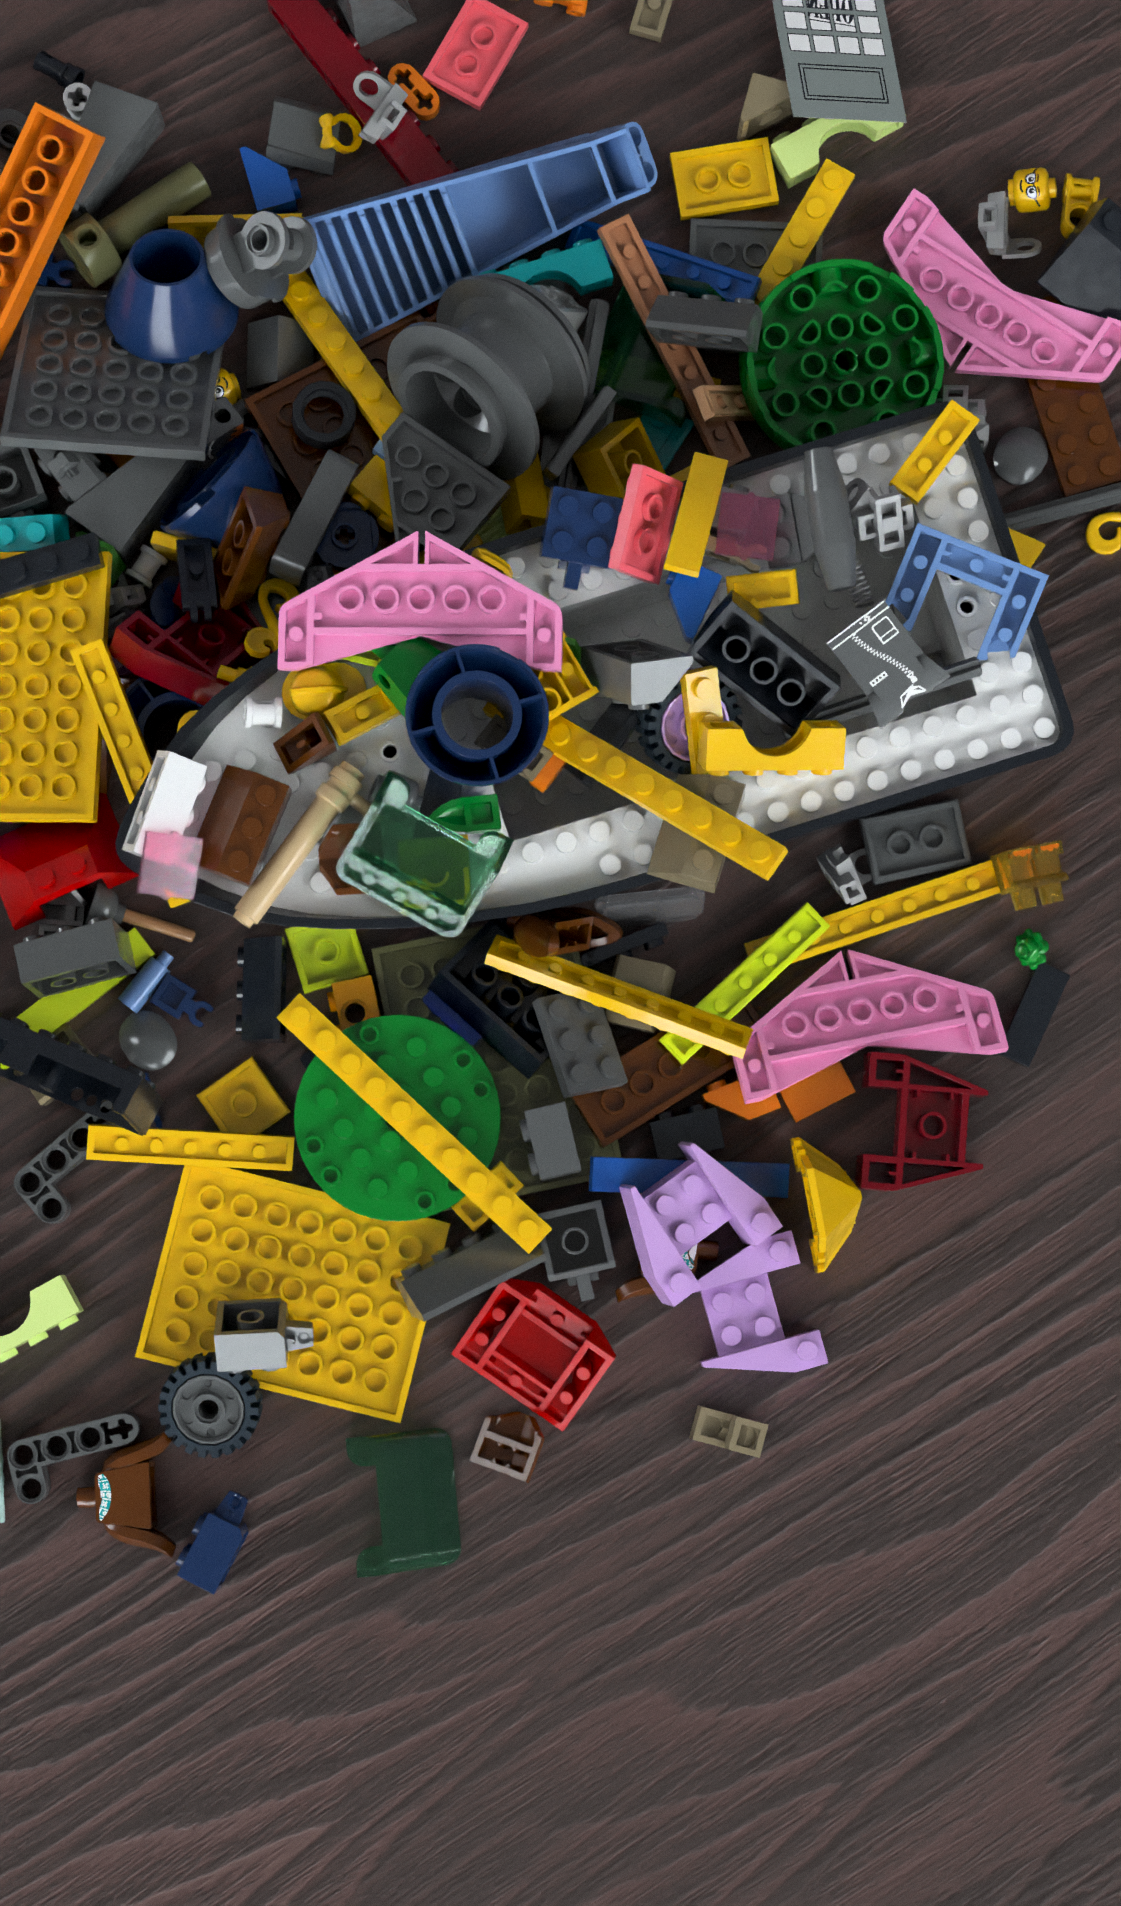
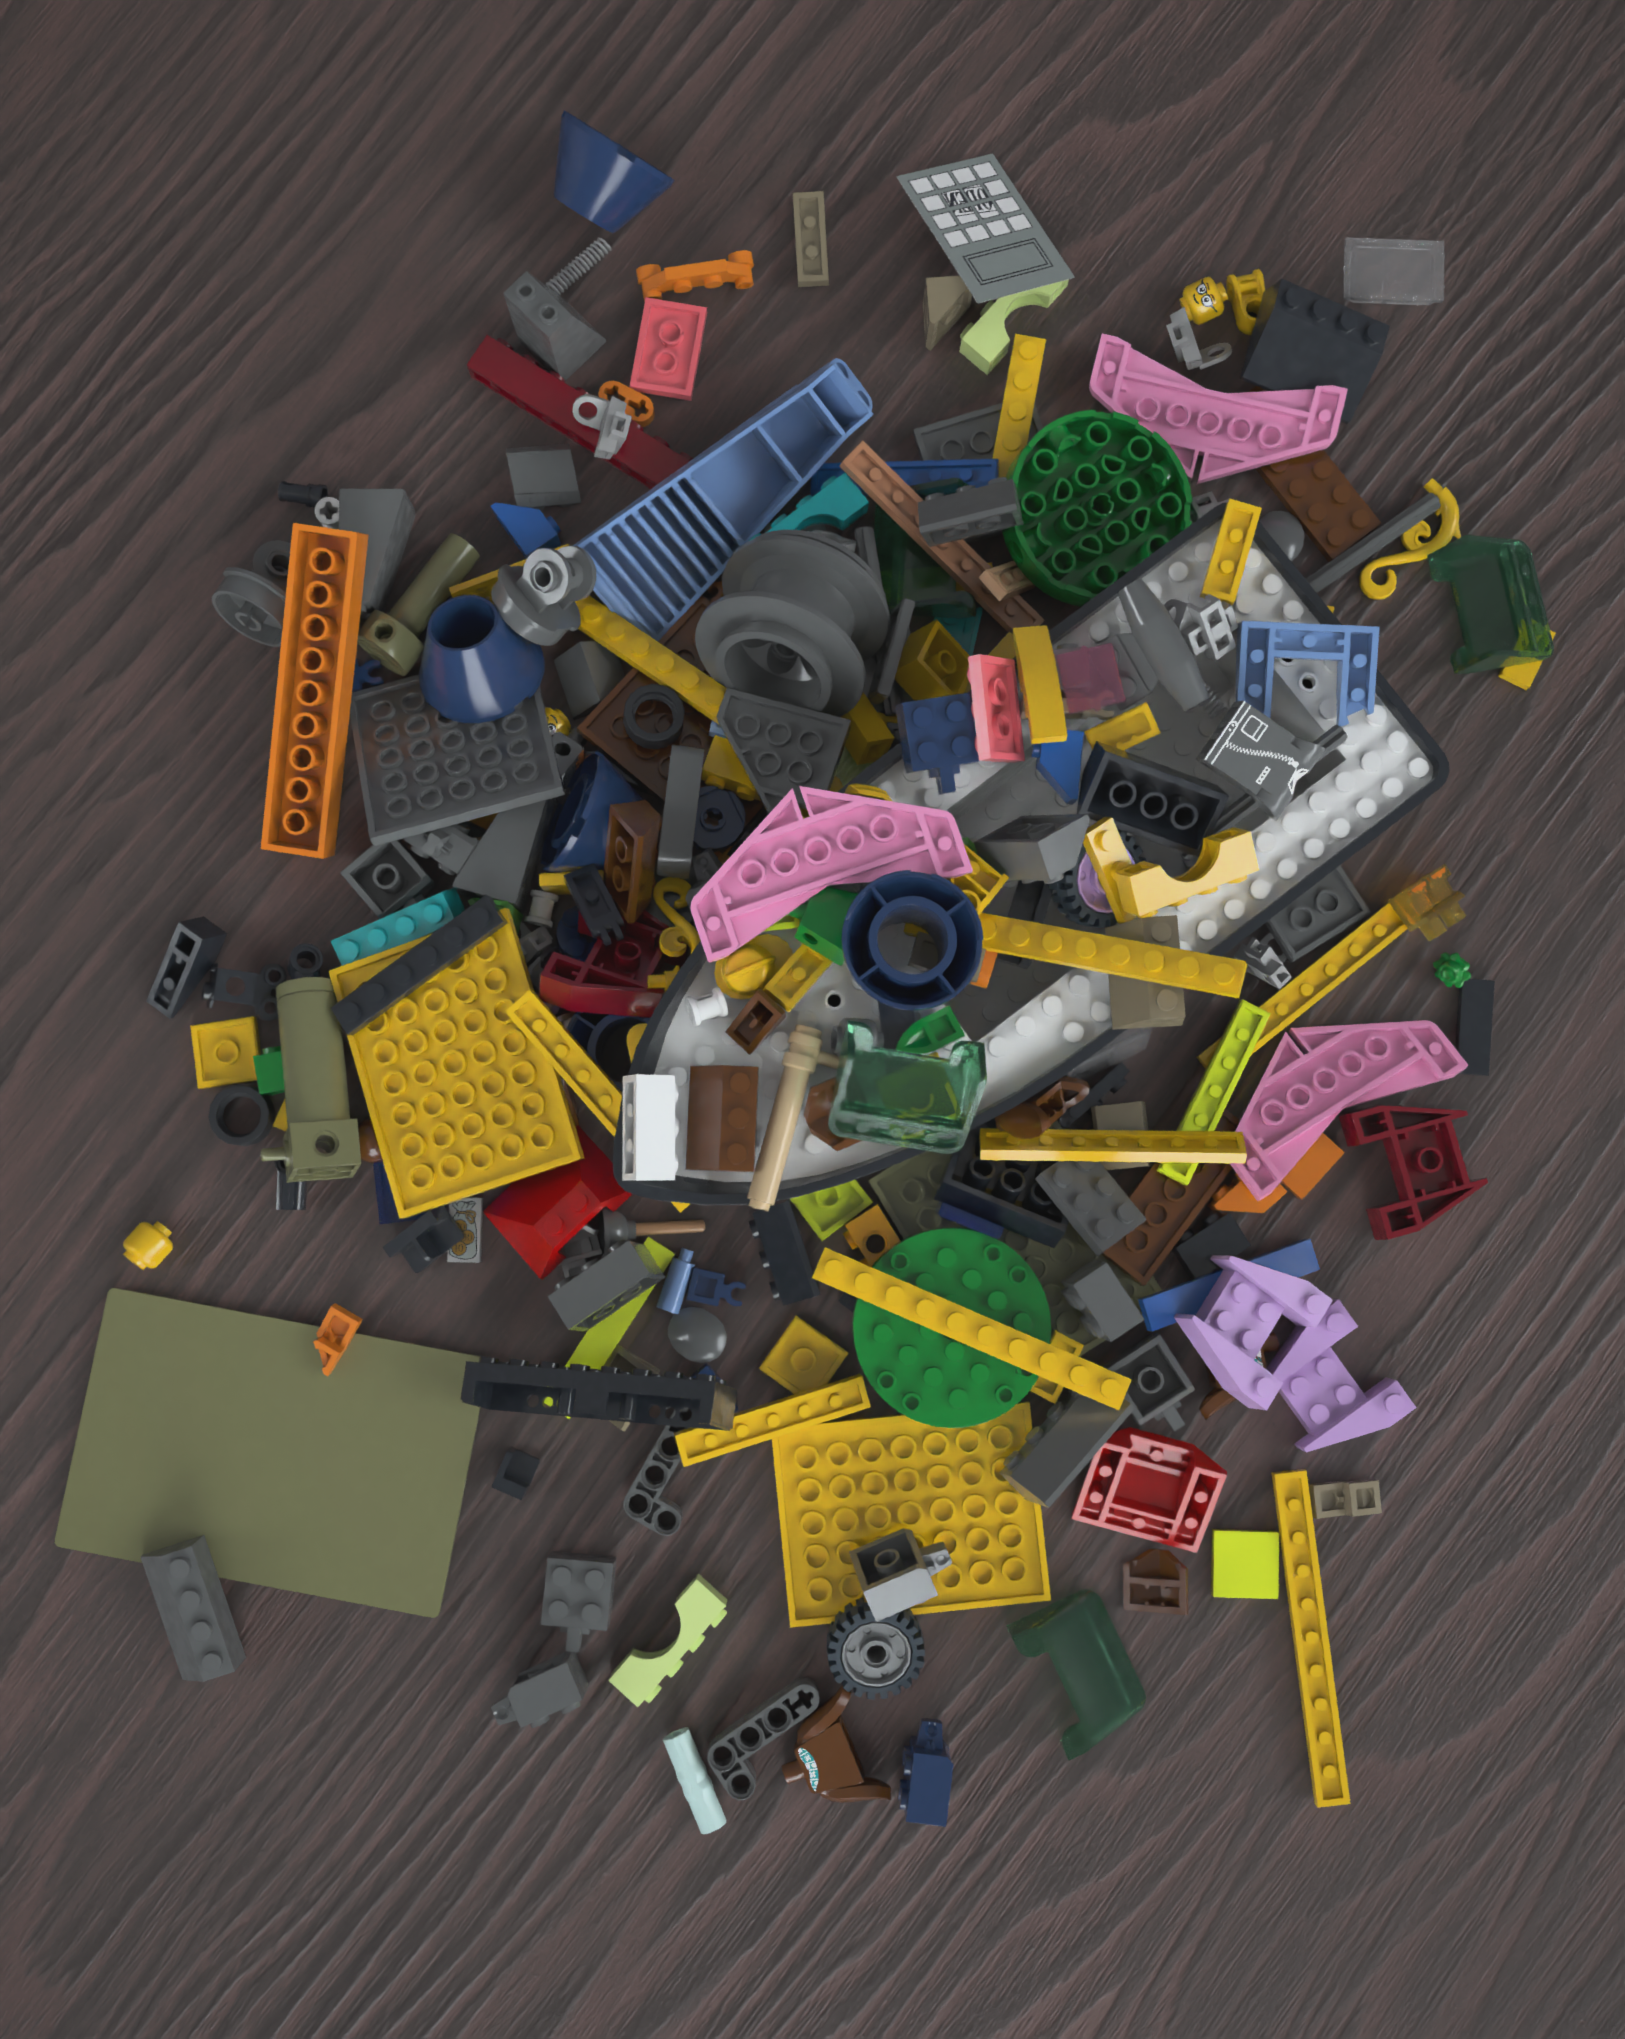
camera: 20 degrees left, 0 degrees up
(169, 865) = (673, 1180): clear pink piece -> none
(329, 141) = (567, 472): yellow piece -> none
(606, 1459) = (1245, 1564): none -> neon yellow tile
(643, 1553) = (1310, 1638): none -> yellow plate
(724, 178) = (929, 384): yellow plate -> none
(831, 1201) = (1367, 1259): yellow wedge -> none

